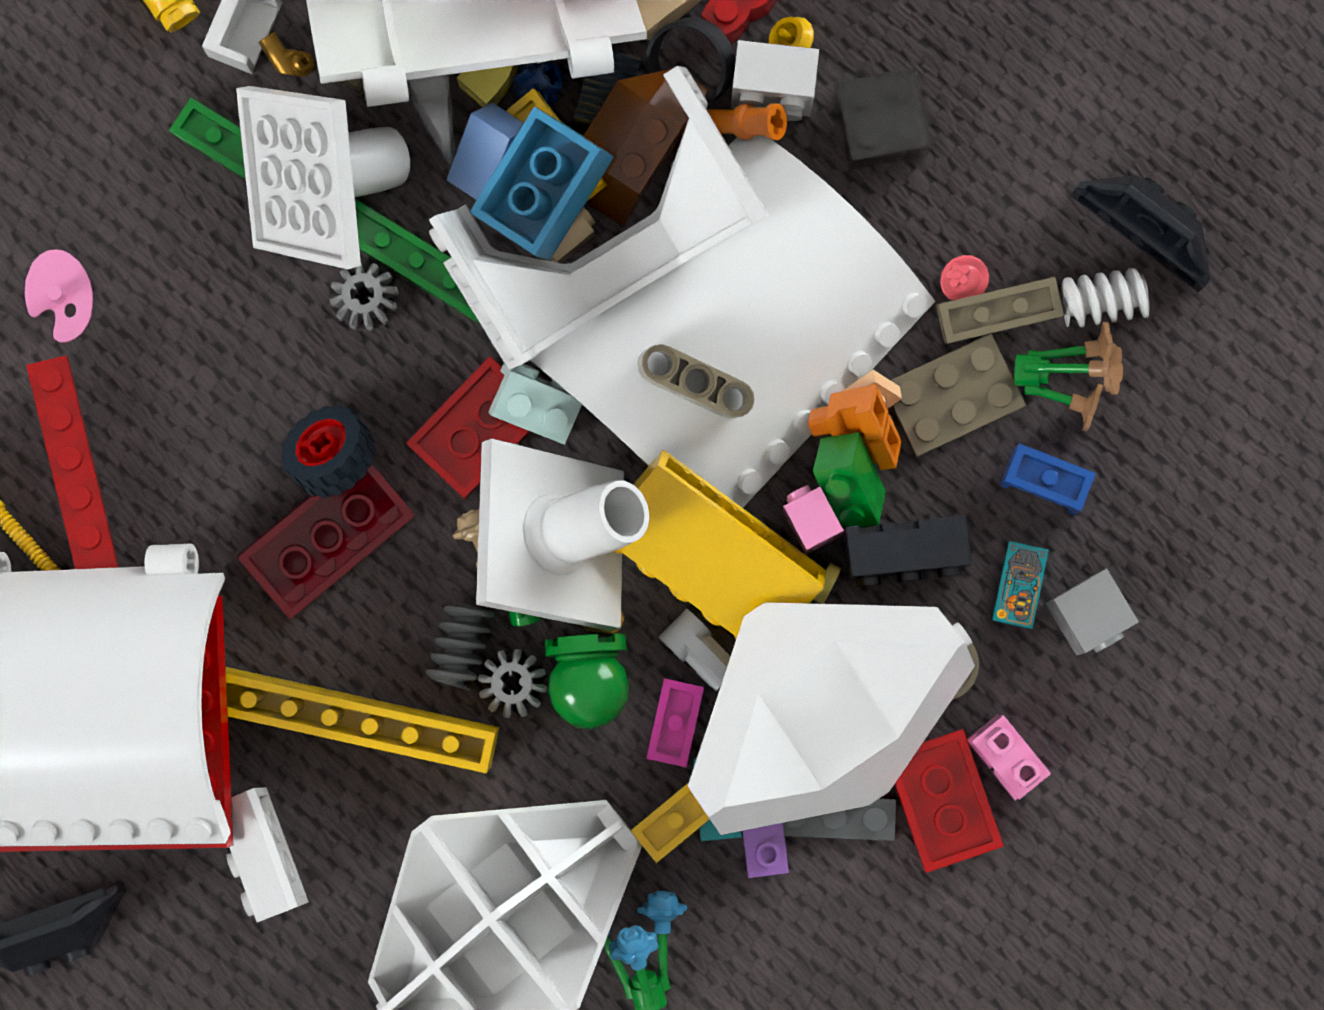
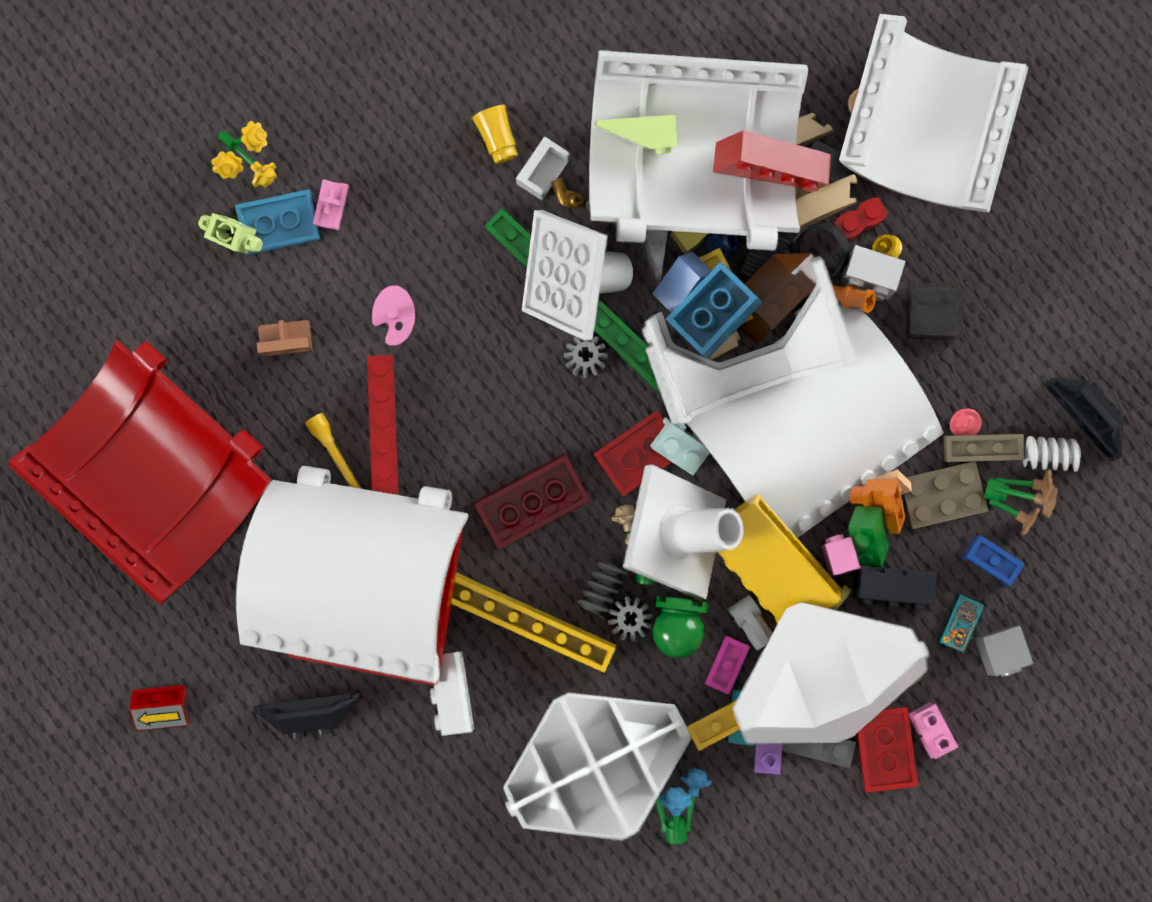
camera: 10 degrees right, 0 degrees up
(328, 451) = (544, 449): black wheel -> none
(716, 381) = (798, 460): dark tan beam -> none

